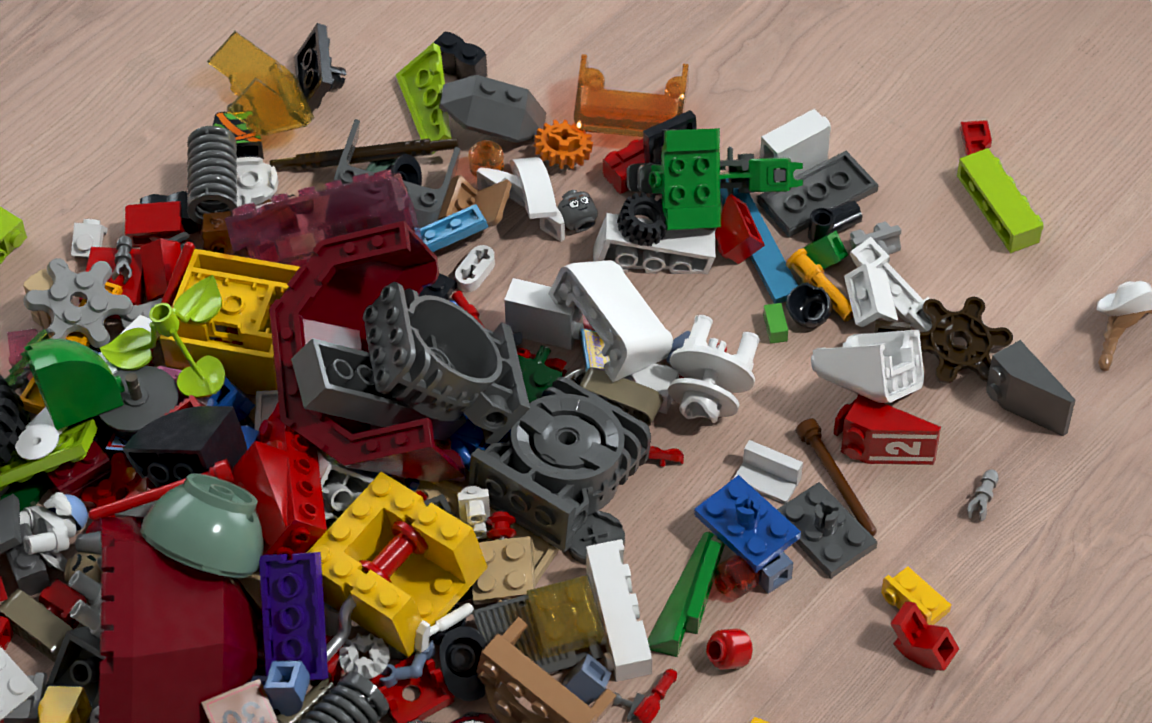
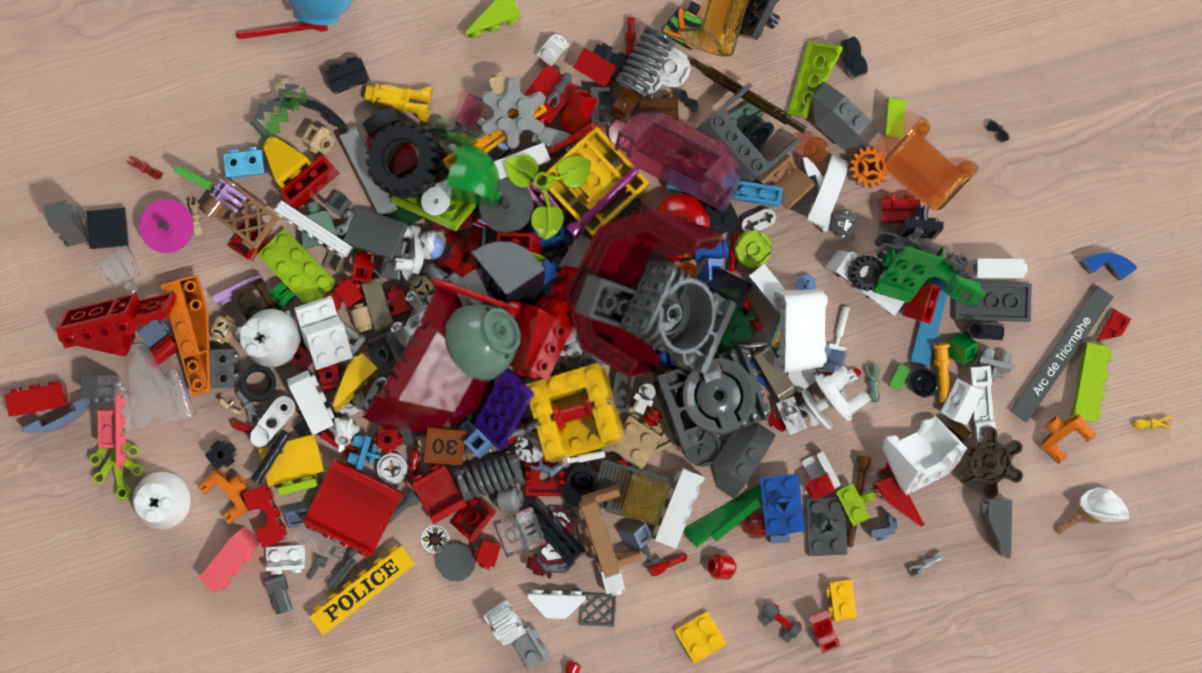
camera: 30 degrees right, 35 degrees up
(25, 652) = (361, 318): none -> tan brick
(175, 177) = (630, 35): none -> red bar
(245, 359) = (577, 227): none -> magenta piece
(485, 293) = (753, 249): none -> lime tile
(552, 89) = (894, 118): none -> lime panel
(653, 520) = (741, 457): none -> dark grey wedge
(661, 312) = (840, 329): none -> white piece
(673, 38) = (1002, 134): none -> black piece
(679, 431) = (791, 415): none -> white hips
(761, 357) = (873, 383): none -> sand green piece
(778, 479) = (820, 486): none -> red bracket
(837, 477) = (854, 504): none -> lime plate
(840, 665) = (771, 613): none -> dark grey piece
(900, 486) = (882, 532): none -> sand blue bracket
(921, 79) = (1118, 265): none -> blue brick
(942, 199) = (1061, 354): none -> dark grey tile
(1008, 258) = (1060, 429): none -> orange connector
(1108, 200) = (1152, 423): none -> yellow piece

